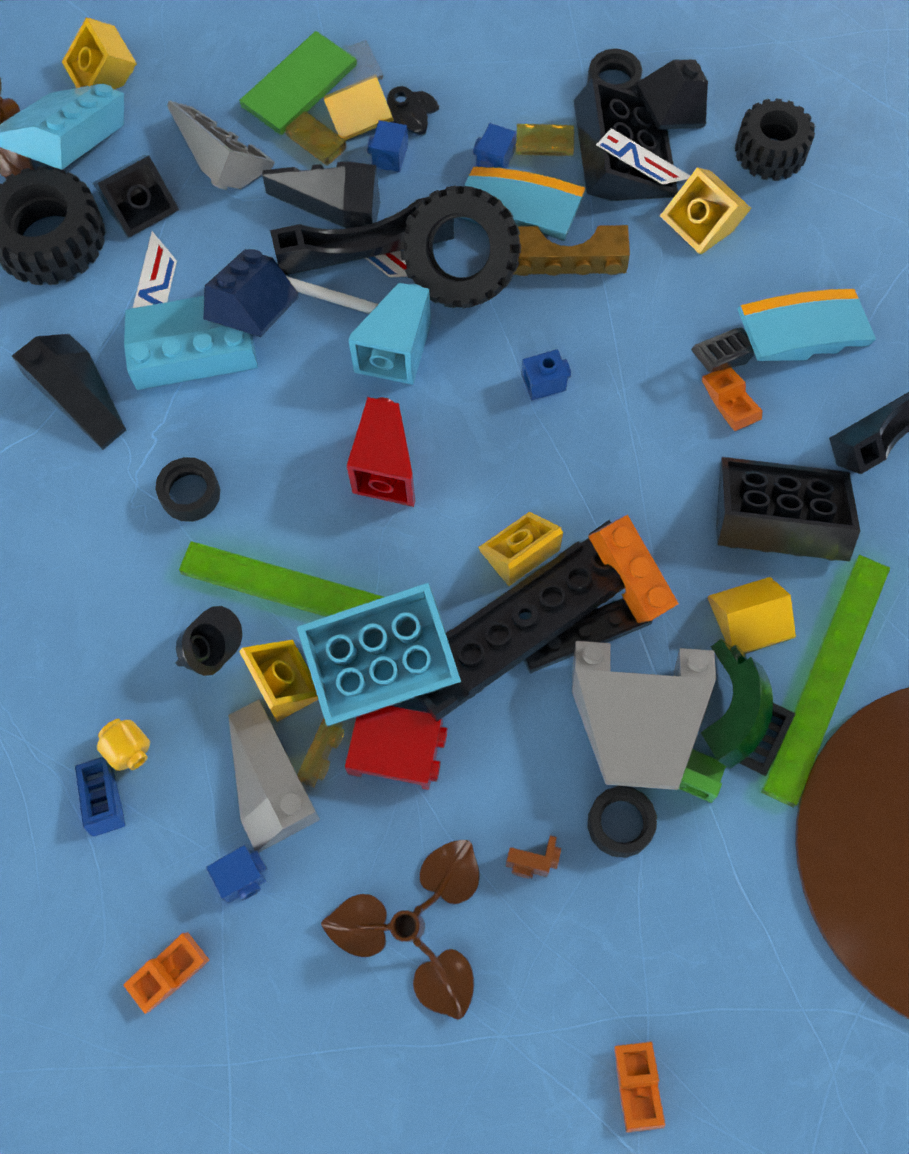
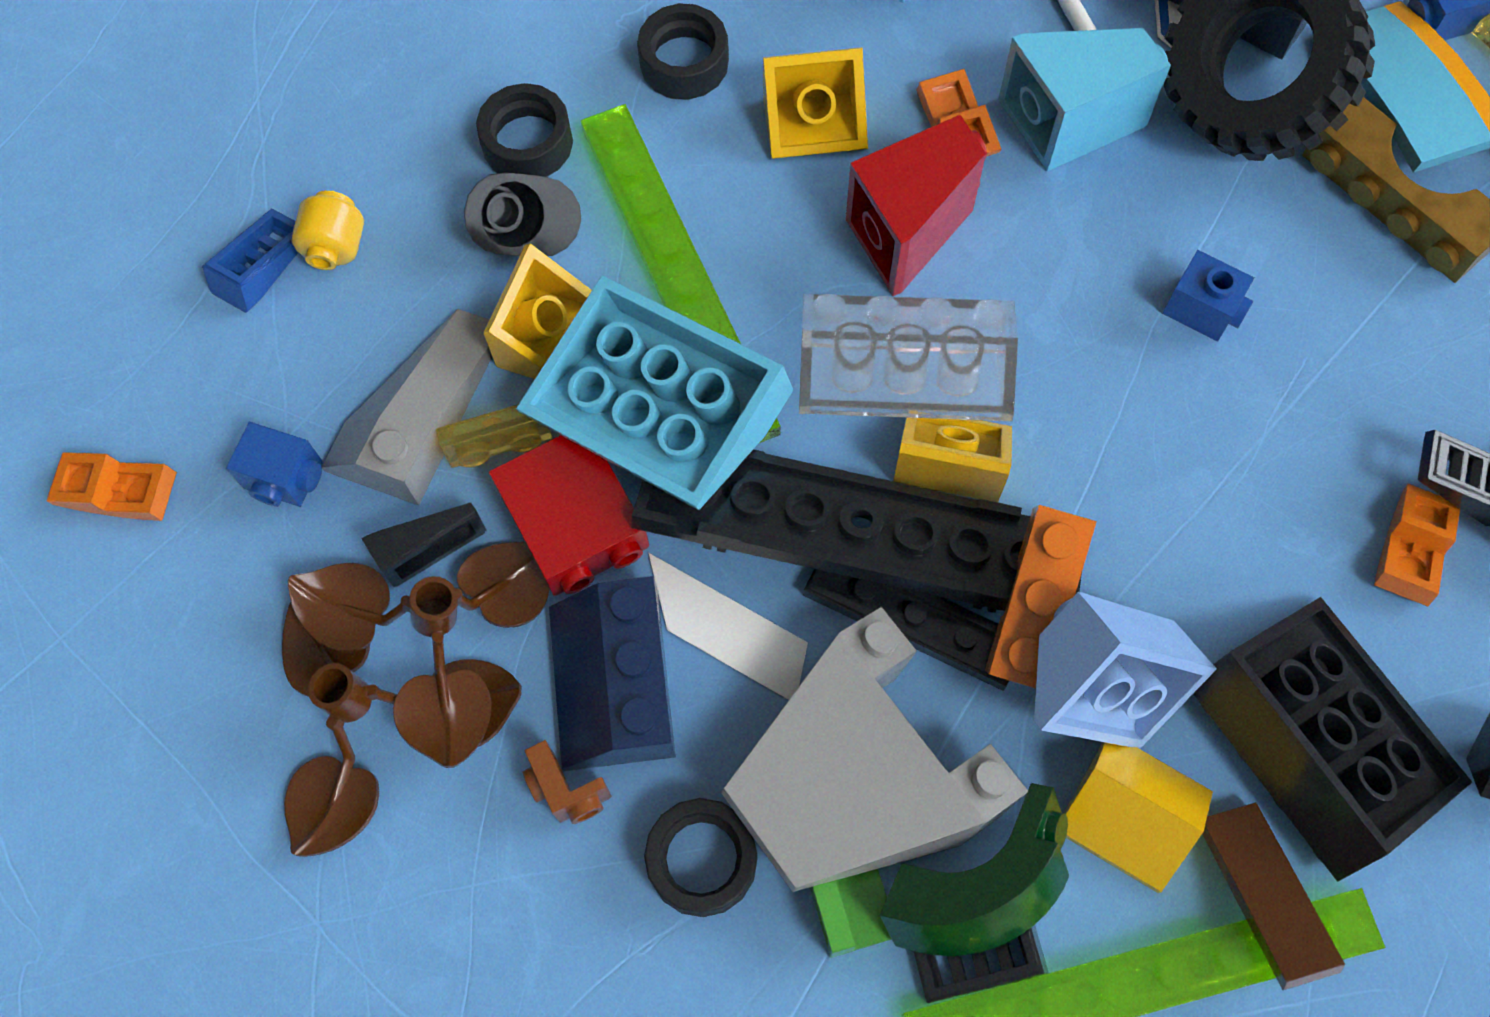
camera: 50 degrees right, 0 degrees up
(148, 581) = (519, 102): none -> black tyre
(281, 454) = (815, 102): none -> yellow slope
(345, 397) = (953, 96): none -> orange slope
(345, 839) = (420, 543): none -> black slope
(452, 886) = (442, 712): none -> reddish brown plant
(458, 527) = (908, 357): none -> clear slope
(497, 792) = (611, 676): none -> dark blue slope
(517, 721) = (729, 630): none -> white sticker
(693, 567) = (1113, 672): none -> light blue slope
(836, 592) = (1271, 897): none -> reddish brown tile

